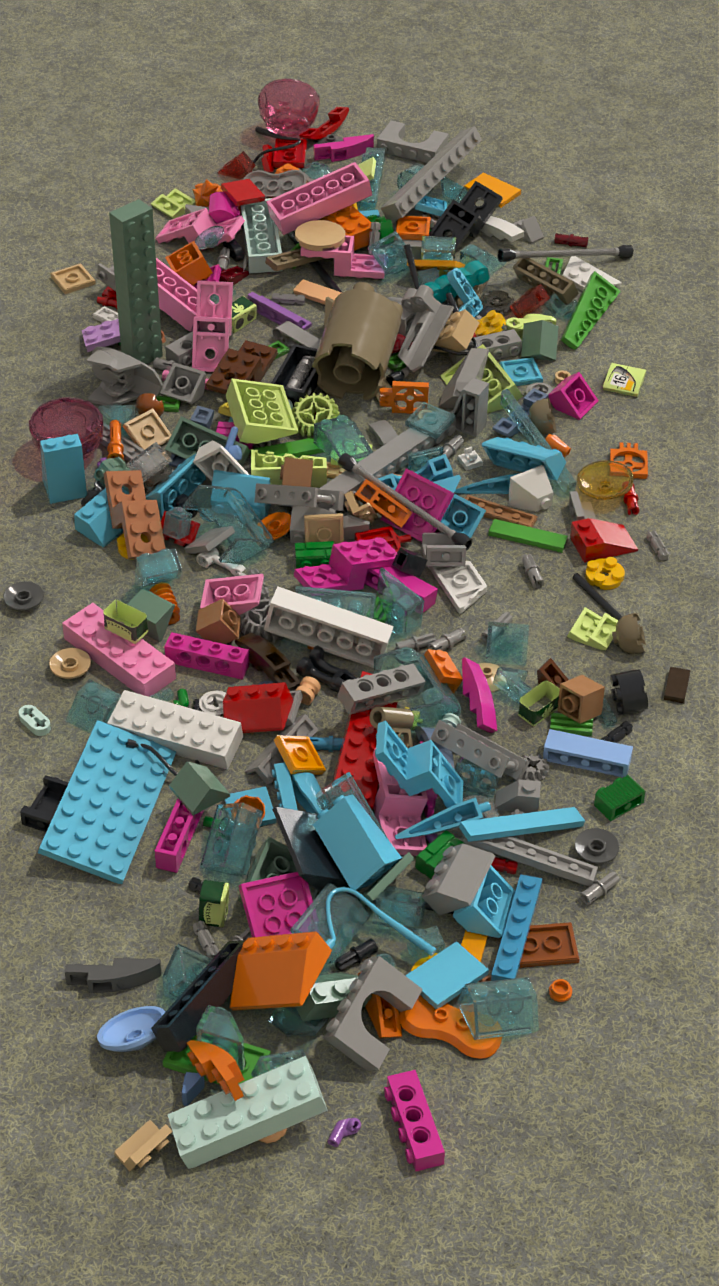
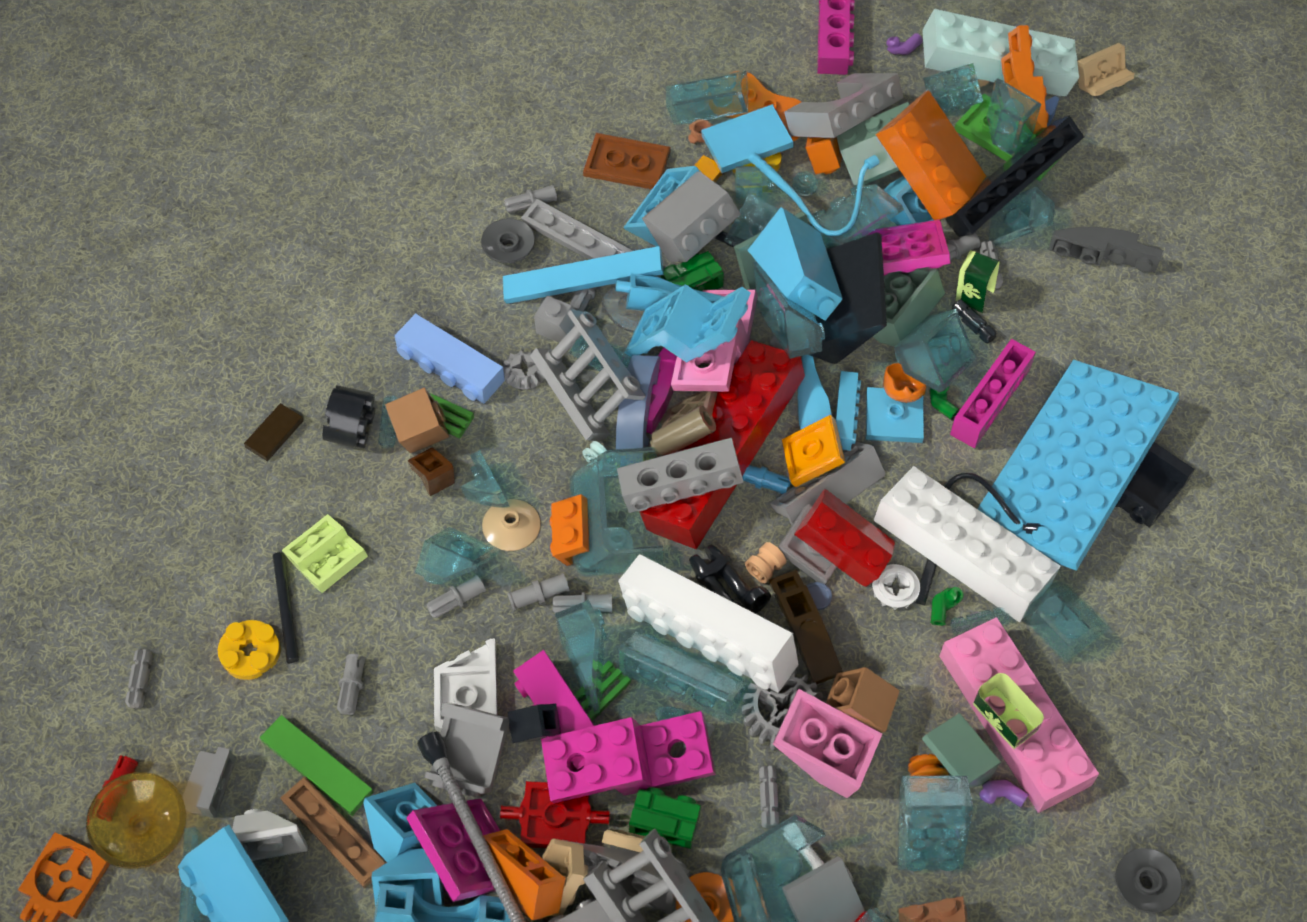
camera: 160 degrees left, 15 degrees up
(37, 717) = (1159, 631): light aqua beam -> none
(70, 663) = (1100, 705): tan dish -> none
(130, 1029) = (1112, 172): light blue dish -> none
(197, 788) = (960, 410): sand green slope -> none
(207, 655) = (891, 661): dark pink brick -> none
(356, 954) = (824, 201): black axle -> none
(477, 689) = (539, 480): dark pink slope -> none
(494, 485) = (302, 896): medium azure piece -> none
(517, 928) = (646, 173): dark azure plate -> none
(543, 689) = (465, 432): yellowish green piece -> none
(560, 990) = (632, 109): orange plate -> none
(600, 539) = (214, 710): red slope -> none
(619, 732) = (397, 381): black axle -> none
(619, 797) = (446, 291): green brick -> none
(630, 634) = (288, 512): dark tan cylinder -> none

